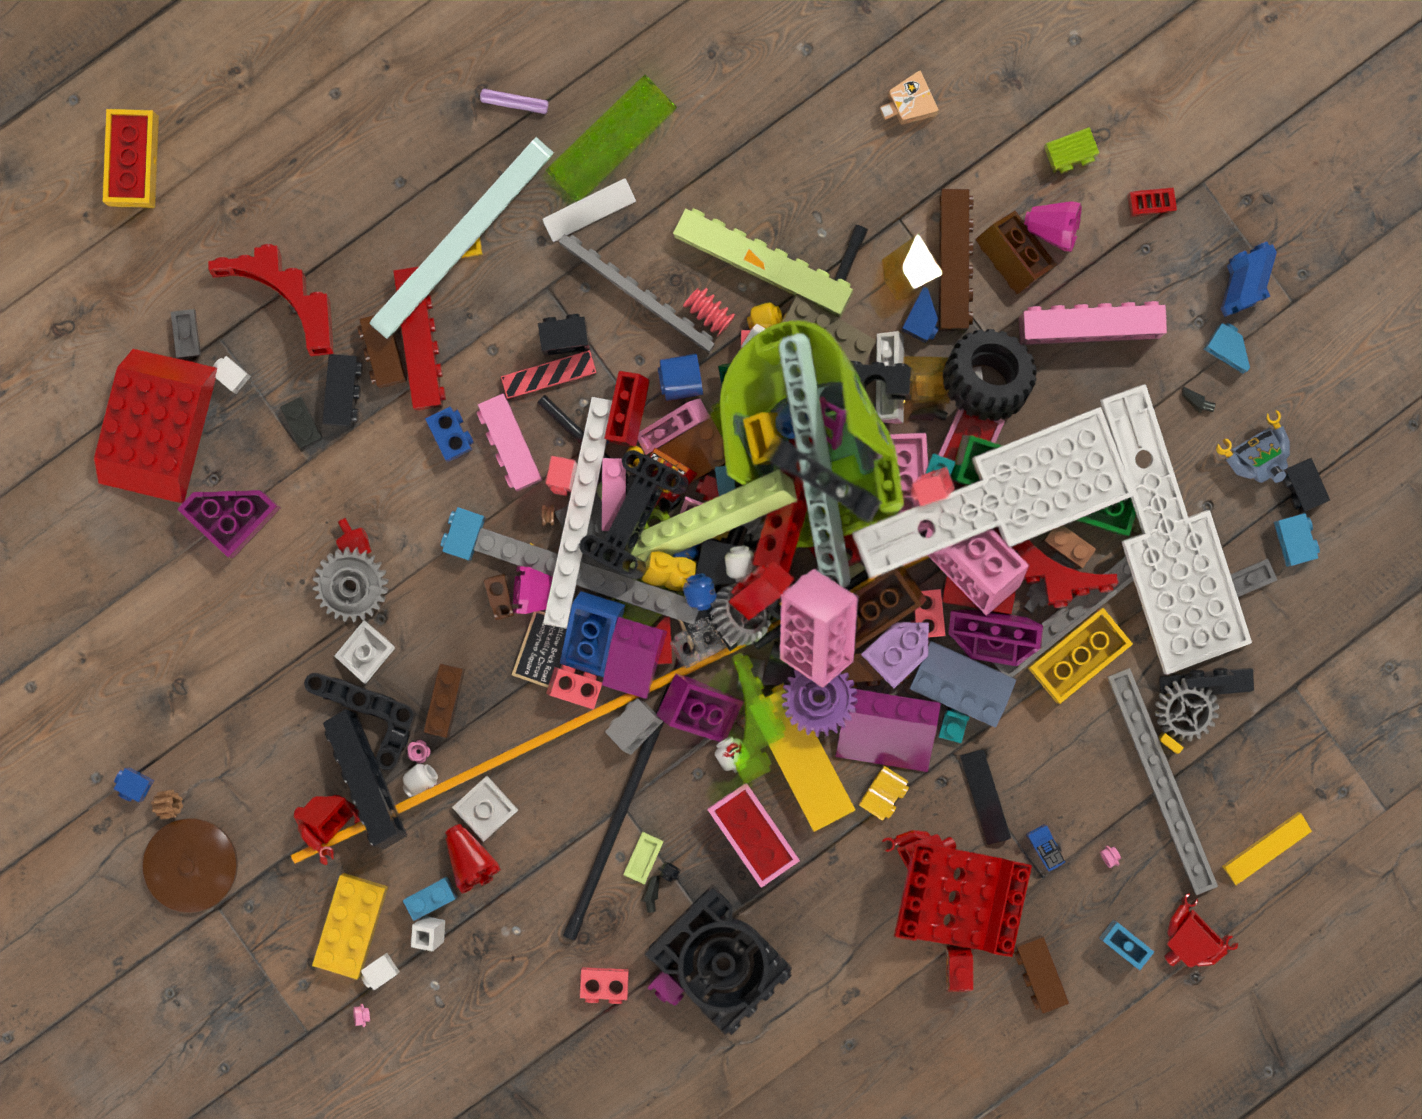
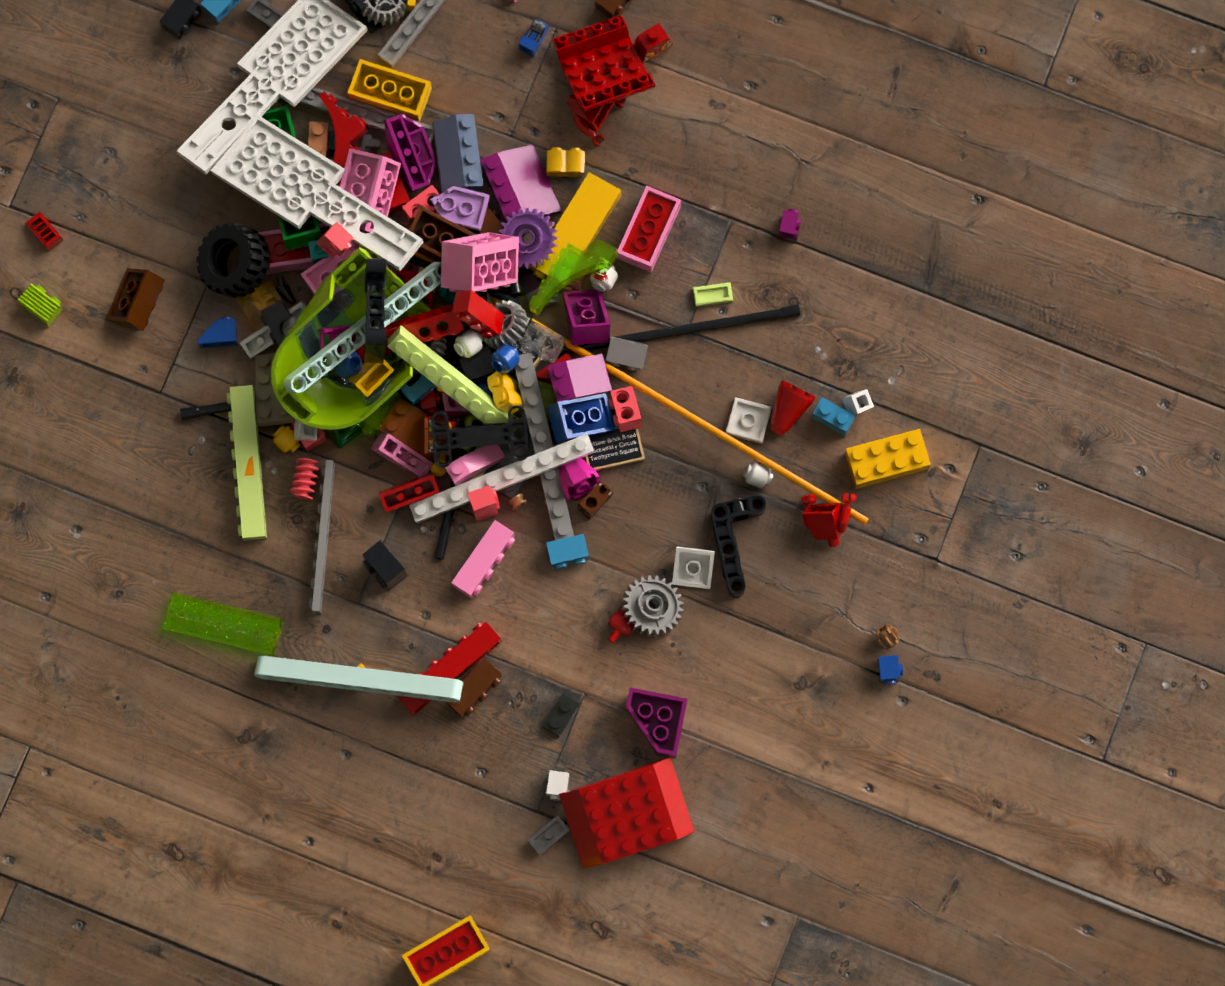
camera: 125 degrees left, 10 degrees down
(190, 865) = (919, 596): reddish brown dish -> none
(290, 284) = (466, 806): red arch -> none
(342, 390) = (520, 698): black brick -> none
(361, 1015) = (944, 415): bright pink plate -> none
(364, 779) = (780, 506): black brick -> none
(379, 972) = (905, 420): white brick -> none
(413, 747) = (738, 484): bright pink plate -> none
(444, 700) = (691, 491): reddish brown brick -> none
(445, 436) = (507, 606): blue brick -> none
(514, 101) = (237, 708): lavender axle -> none
(548, 374) = (418, 564): tile -> none
(589, 210) = (284, 608): white slope -> none
(604, 977) = (810, 268): coral brick -> none
(651, 894) = (733, 274): pearl dark grey bar -> none
(669, 871) = (711, 271): black plate -> none
(680, 377) = (364, 468): blue piece -> none
(729, 1008) = (742, 233): black brick -> none
(909, 268) = (190, 361): clear yellow slope -> none
(910, 101) = (70, 434): light nougat torso -> none
(953, 725) = (490, 145): teal bracket -> none
(954, 260) = (165, 336): reddish brown brick -> none
(985, 796) = (524, 96): black slope -> none
(1055, 223) = (99, 283): dark pink cone -> none
(1092, 324) = (153, 213): bright pink brick -> none
(1197, 400) = (165, 120): pearl dark grey bar -> none
(1229, 347) = (115, 120): dark azure slope -> none
(1248, 278) = (60, 133): blue brick -> none
(1261, 455) = (177, 54): sand blue torso -> none

